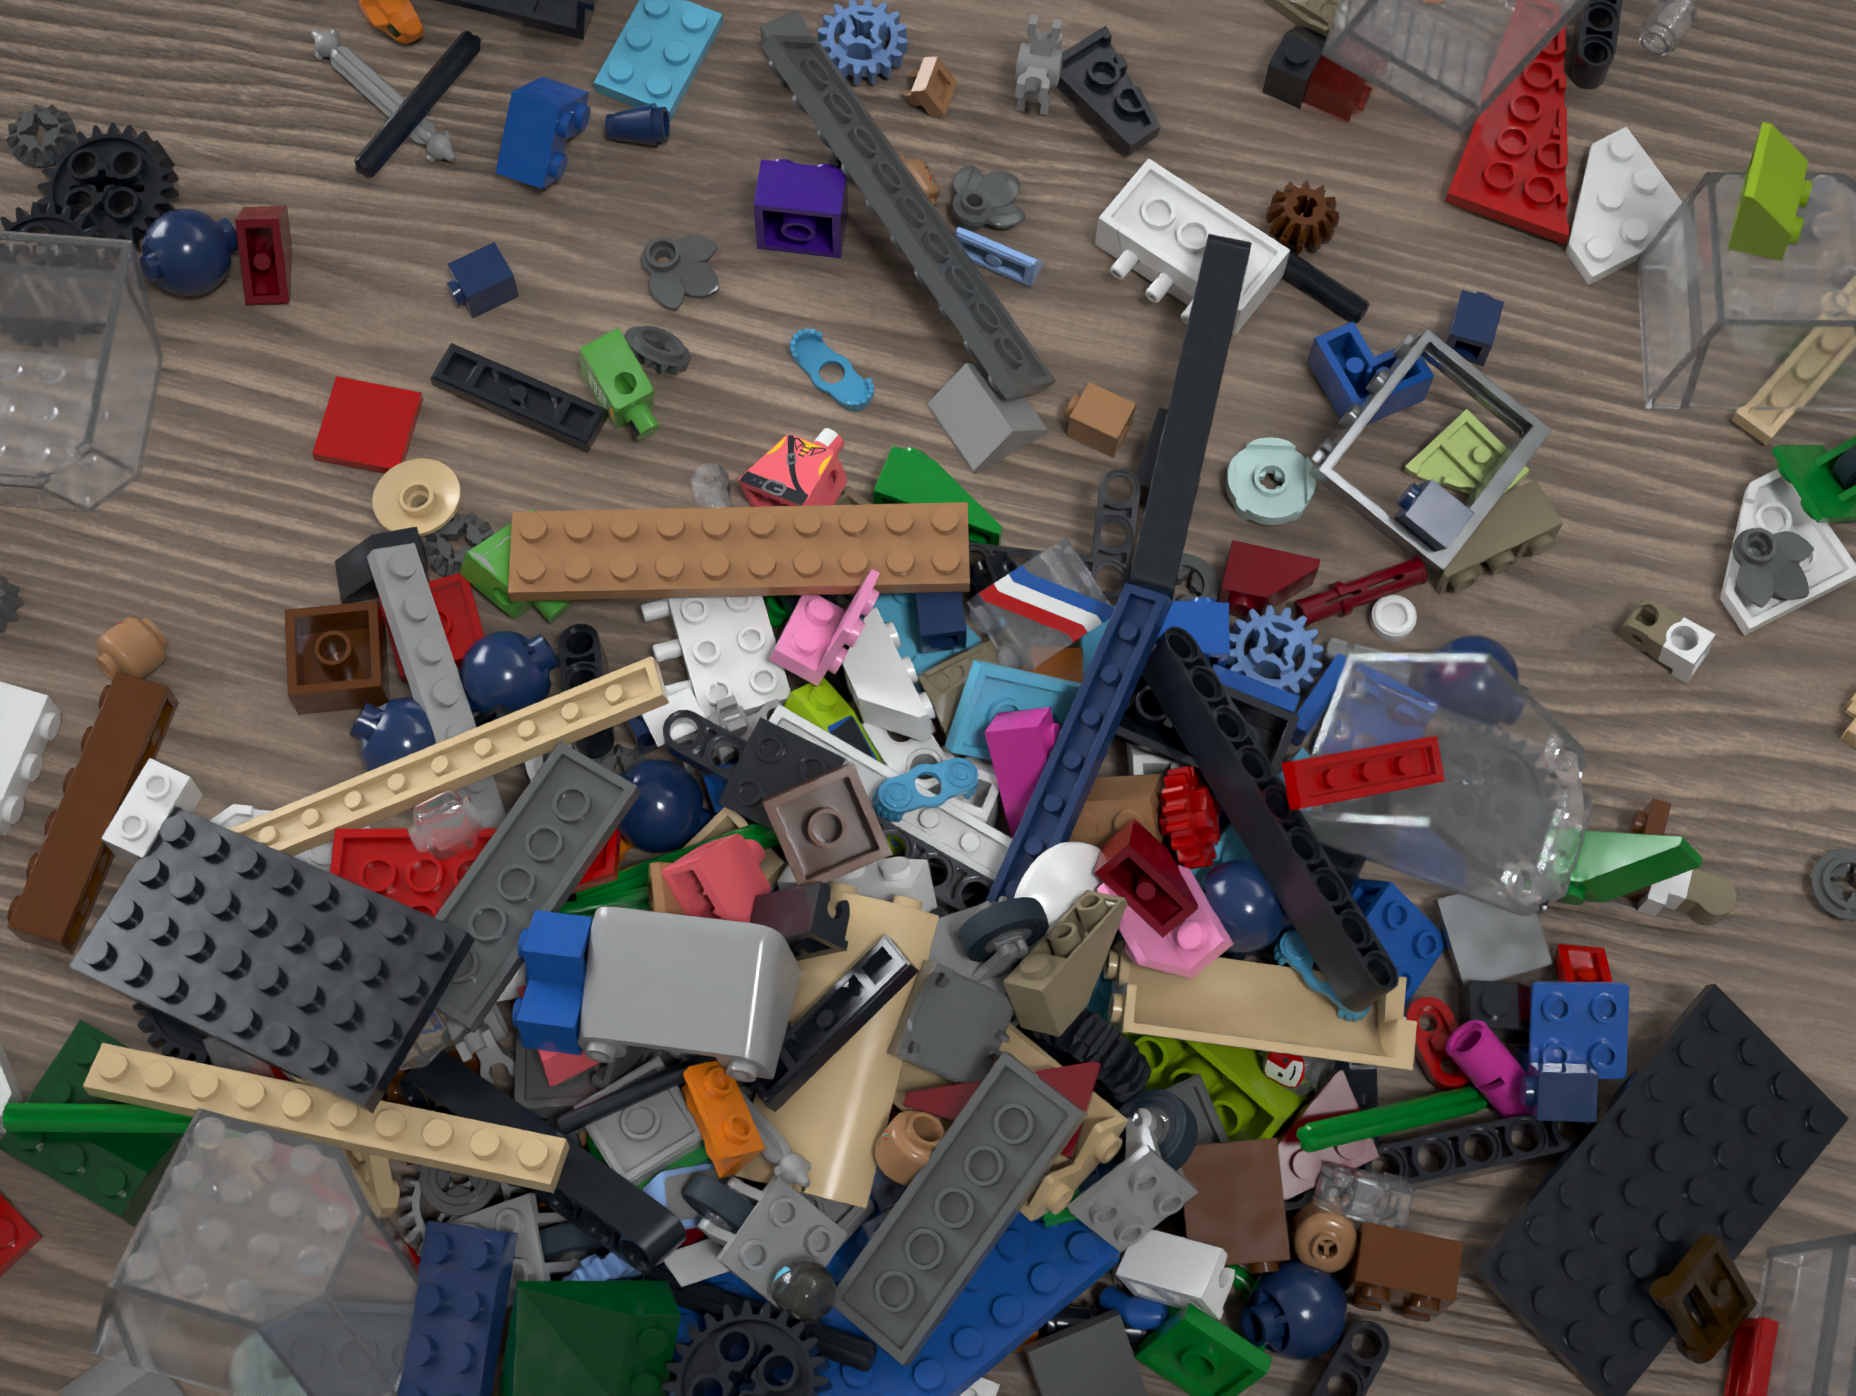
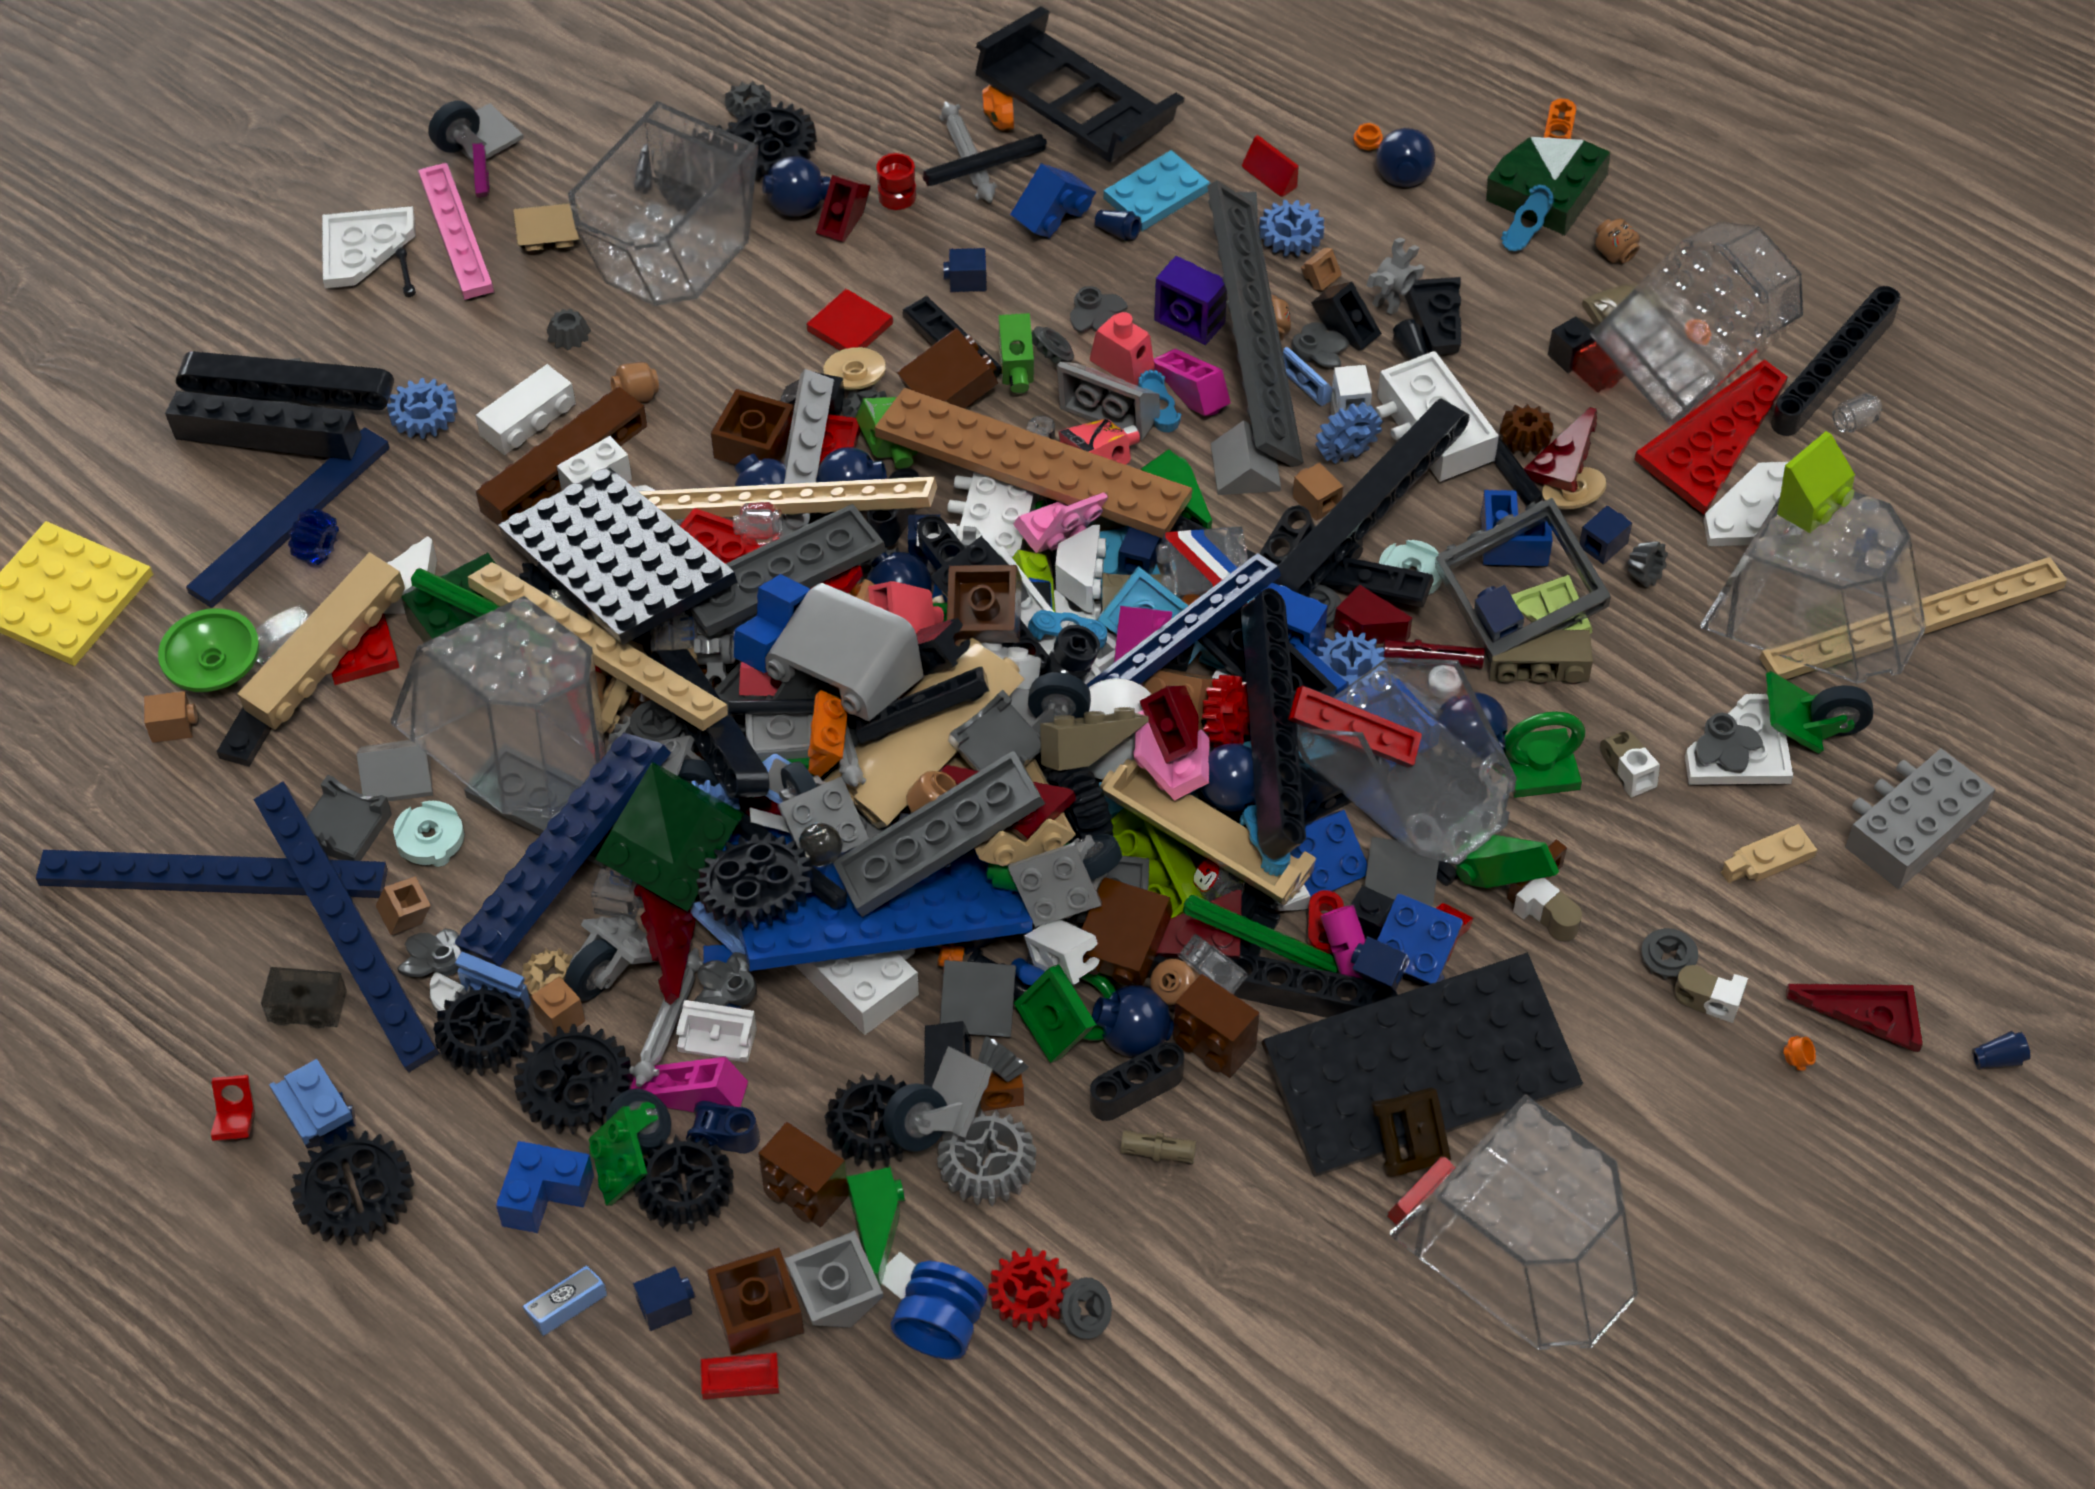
camera: 30 degrees right, 15 degrees down
(317, 184) = (896, 181): none -> red wheel
(550, 455) = (951, 371): none -> reddish brown brick
(753, 319) = (1123, 348): none -> coral torso
(771, 400) = (1102, 396): none -> light grey slope
(861, 323) = (1194, 381): none -> dark pink slope
(966, 838) = (1073, 652): none -> black wheel
(998, 142) = (1345, 312): none -> black slope
(1079, 272) = (1349, 387): none -> white brick
(1096, 147) = (1410, 338): none -> black cone
(1102, 322) = (1349, 432): none -> medium blue gear
(1252, 520) = (1383, 580): none -> black plate
(1365, 239) = (1564, 457): none -> dark red wing
(1400, 265) = (1590, 487): none -> tan dish
(1542, 346) = (1647, 562): none -> dark grey piece
(1570, 677) = (1545, 758): none -> green tile

